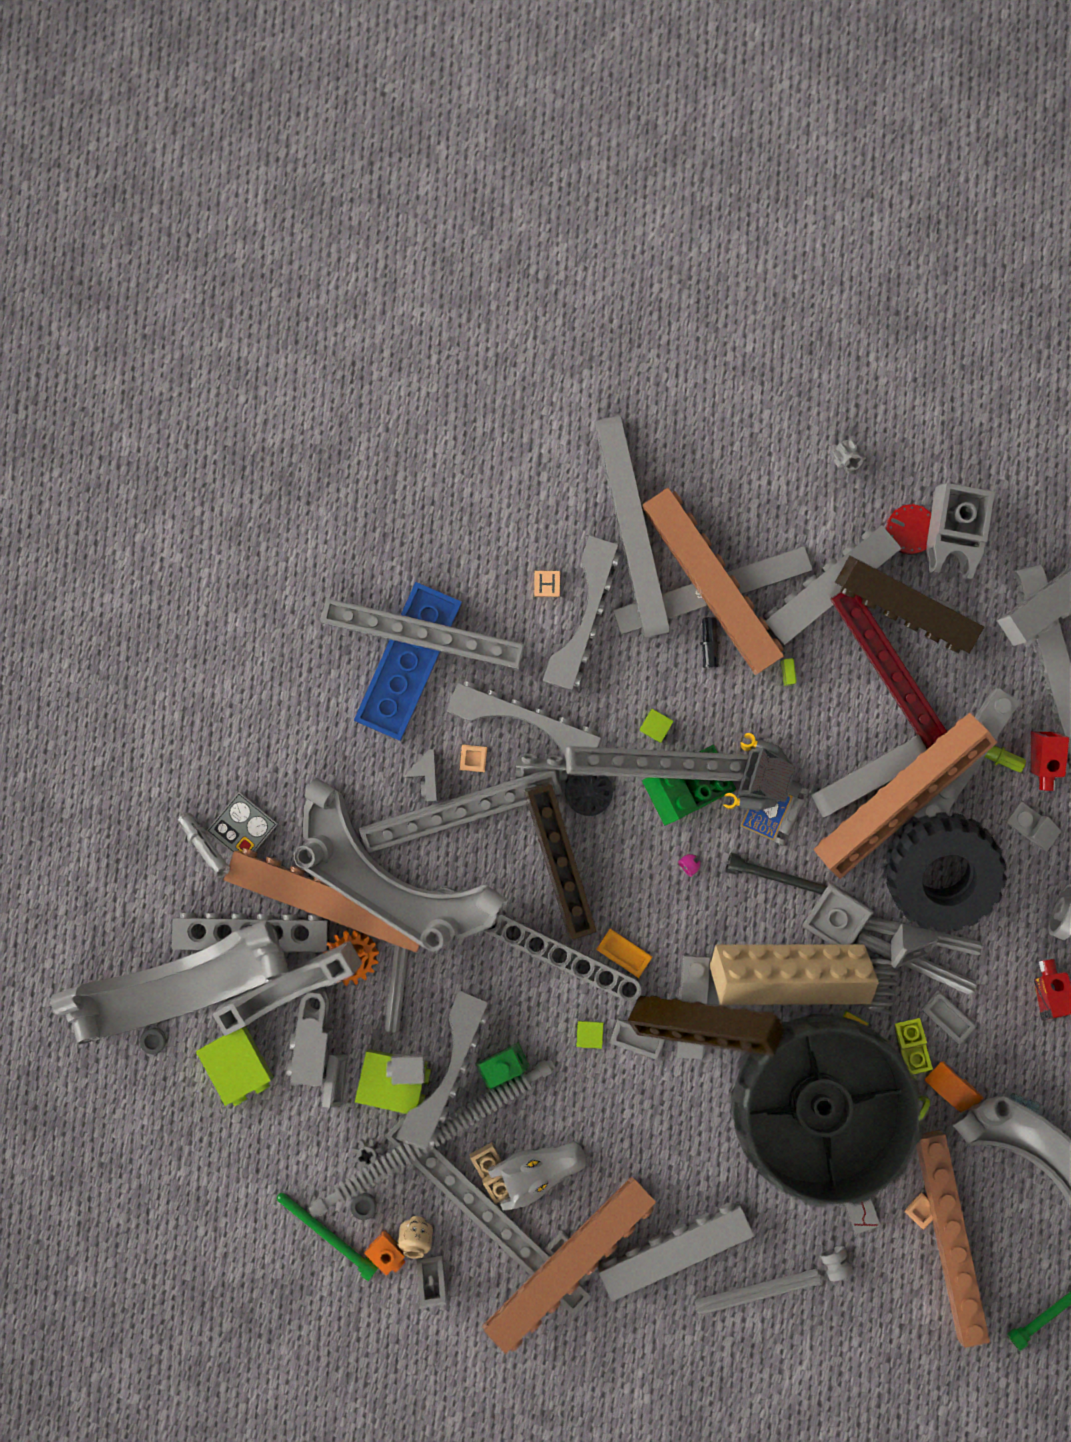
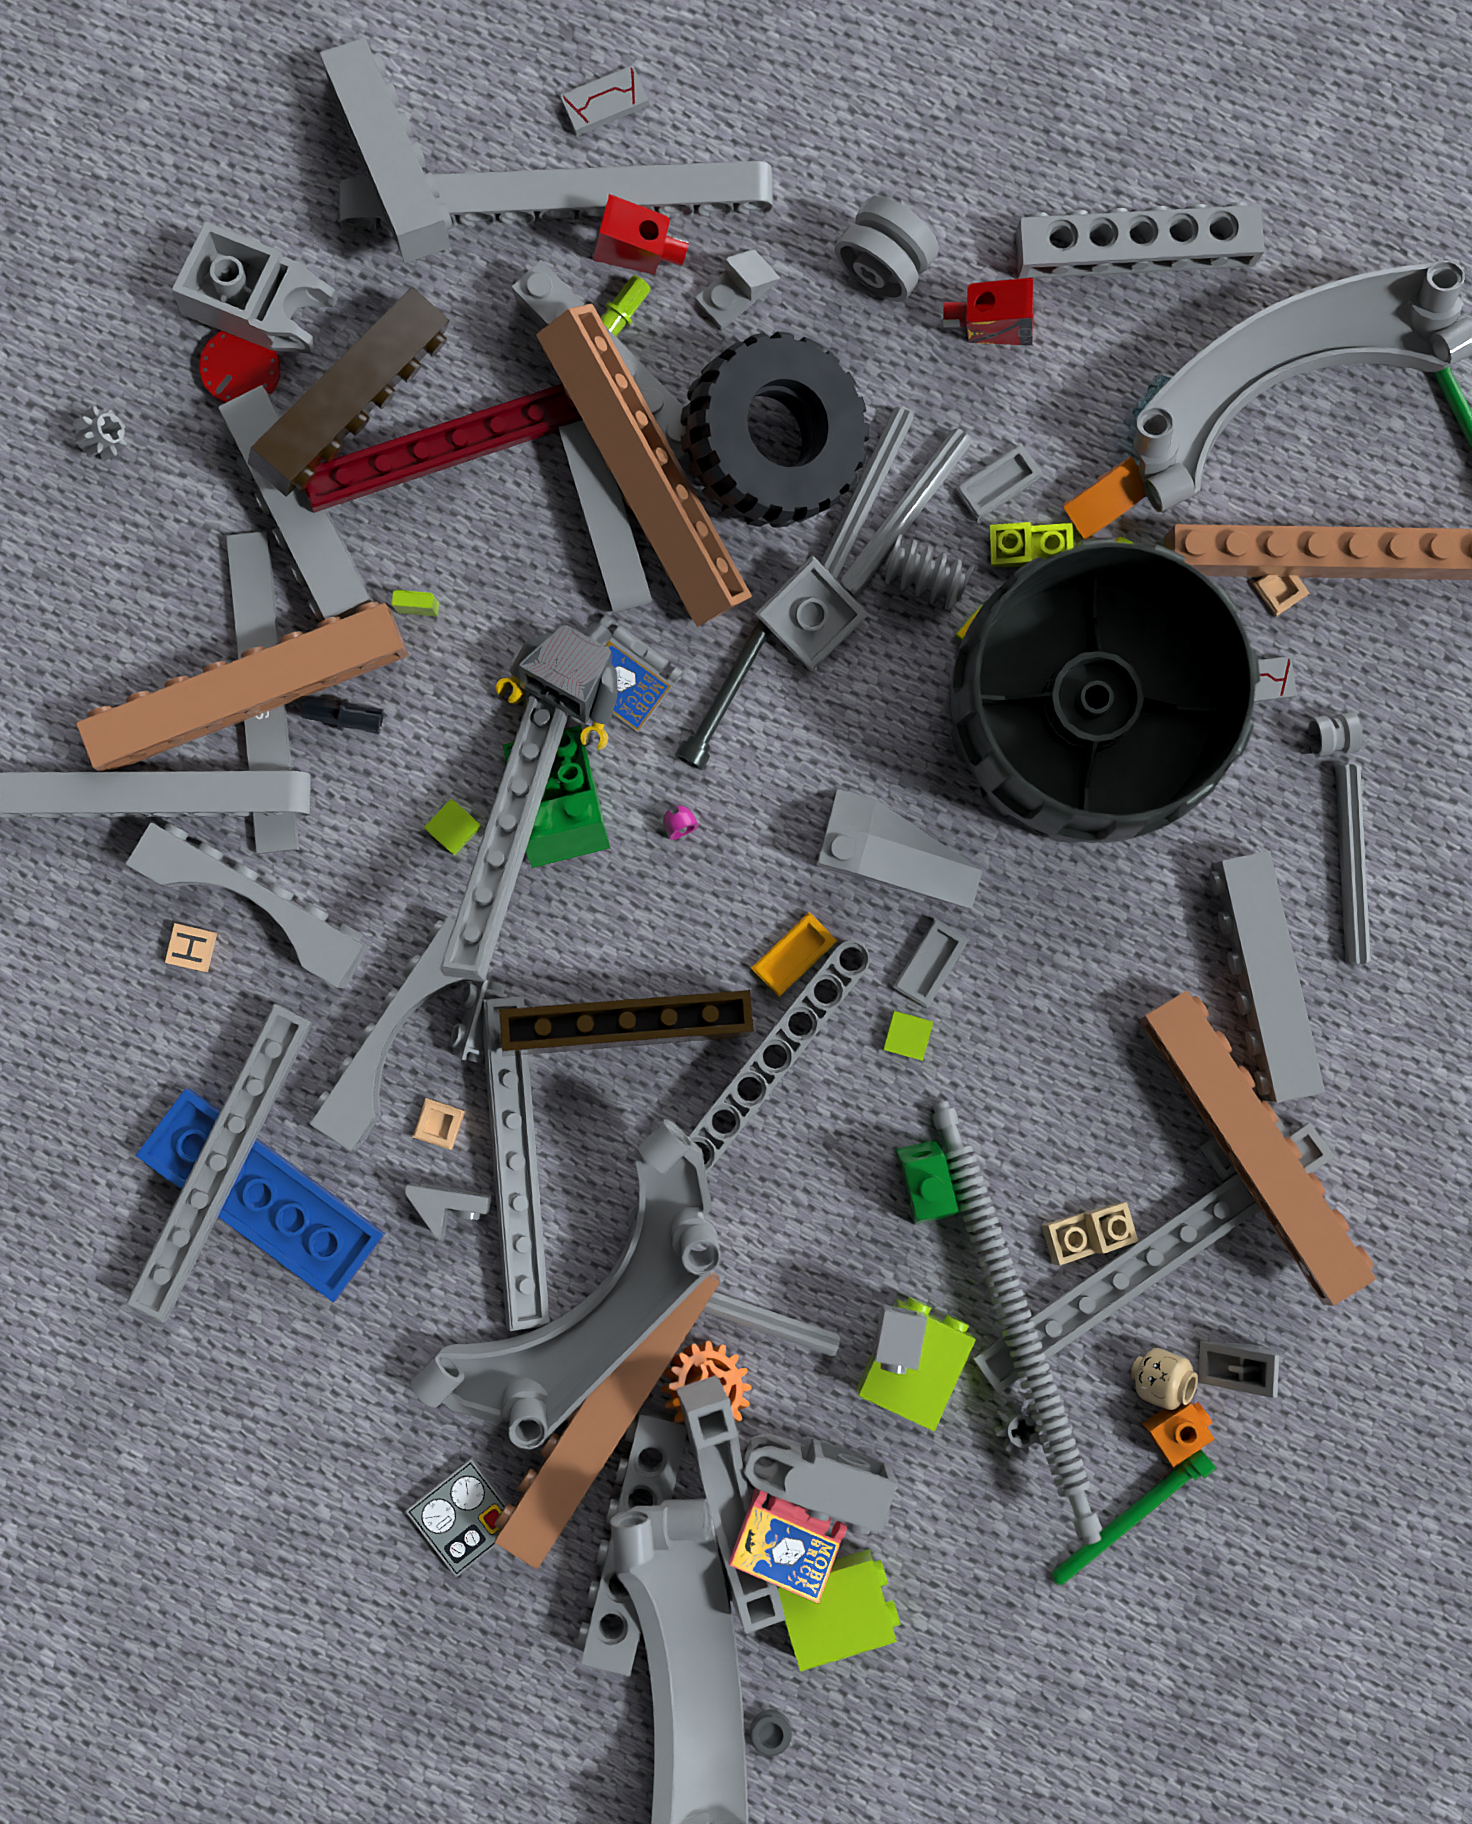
camera: 80 degrees left, 0 degrees up
(198, 837) = (463, 1593): light grey pin -> none
(269, 1027) = (786, 1546): none -> piece
(334, 1080) = (894, 1454): light grey tile -> none
(363, 1206) = (1099, 1449): dark grey tile -> none
(421, 1121) = (987, 1333): light grey arch -> none
(535, 1172) = (1102, 1170): light grey animal -> none
(588, 793) = (532, 954): black wheel -> none
(707, 1024) = (931, 847): dark brown brick -> none
(793, 974) = (881, 699): tan brick -> none
(910, 945) = (876, 511): light grey slope -> none

